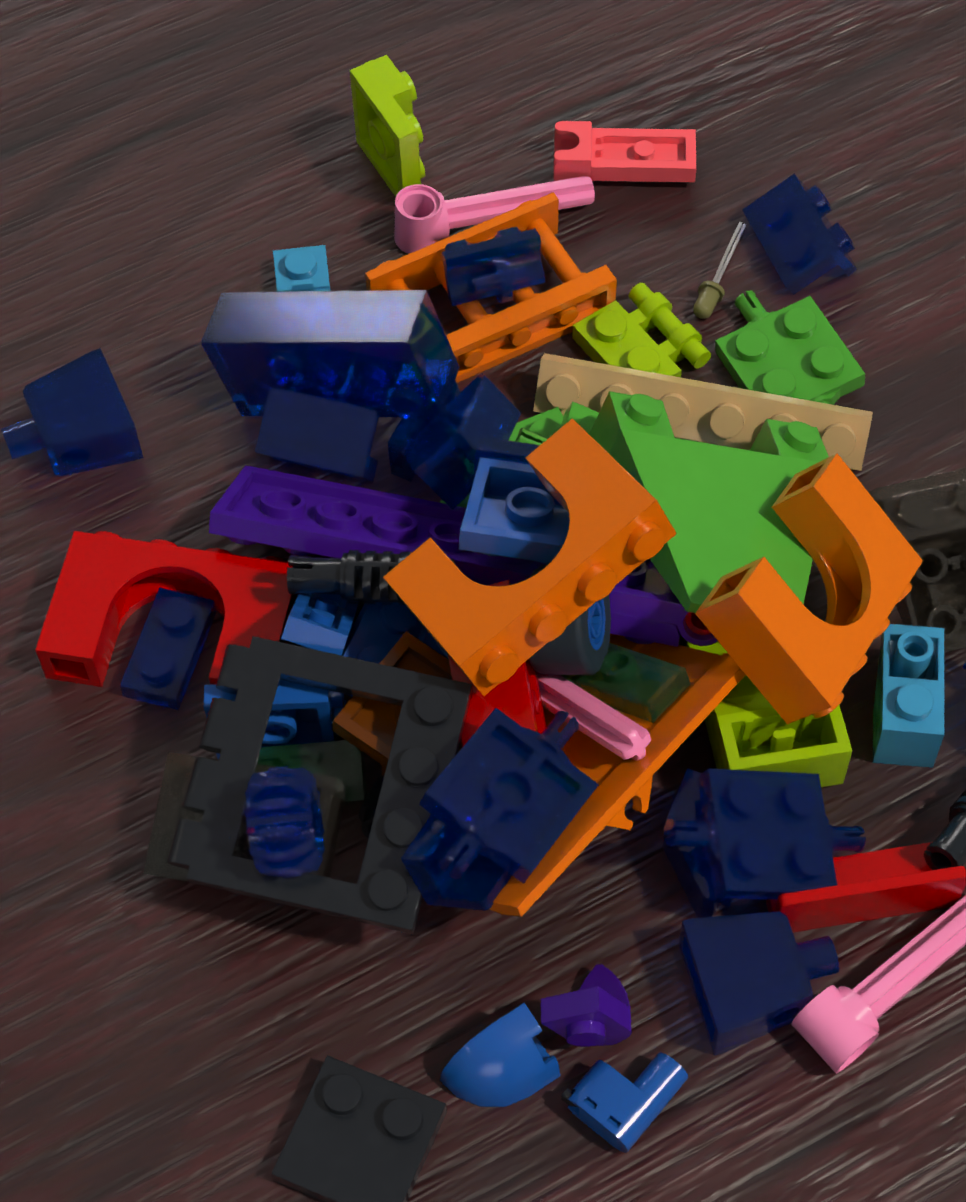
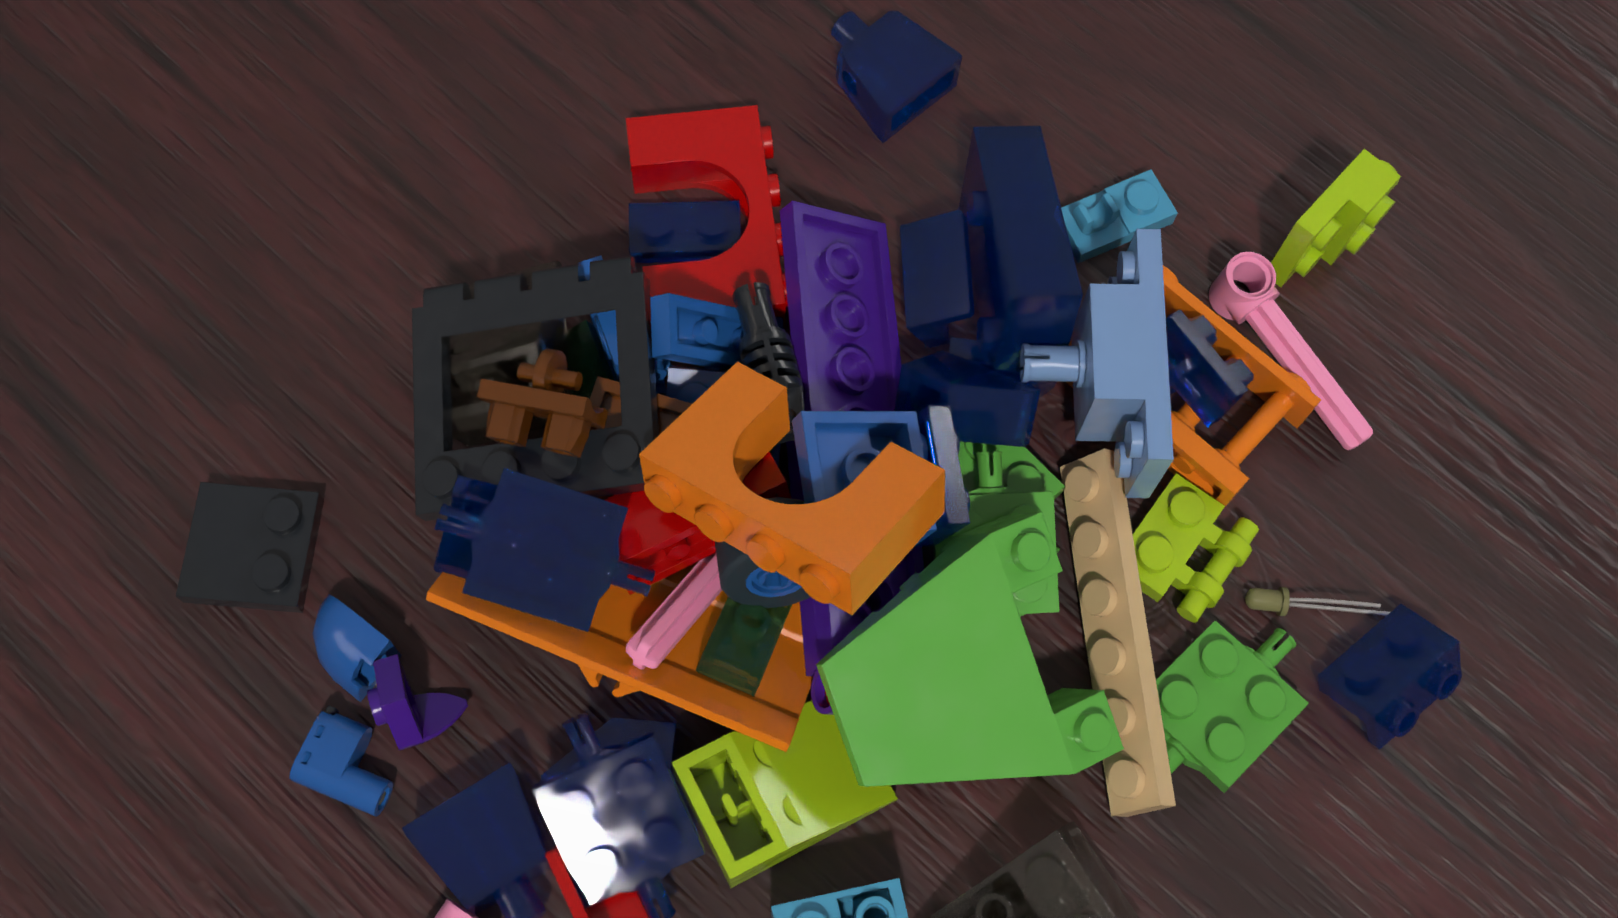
camera: 65 degrees right, 10 degrees up
(284, 822) = (458, 357): clear blue gear -> none
(384, 732) = (567, 415): none -> reddish brown hips
(492, 299) = (1119, 366): none -> medium blue brick
(624, 153) = (1420, 462): coral plate -> none
(865, 571) = (946, 843): orange arch -> none

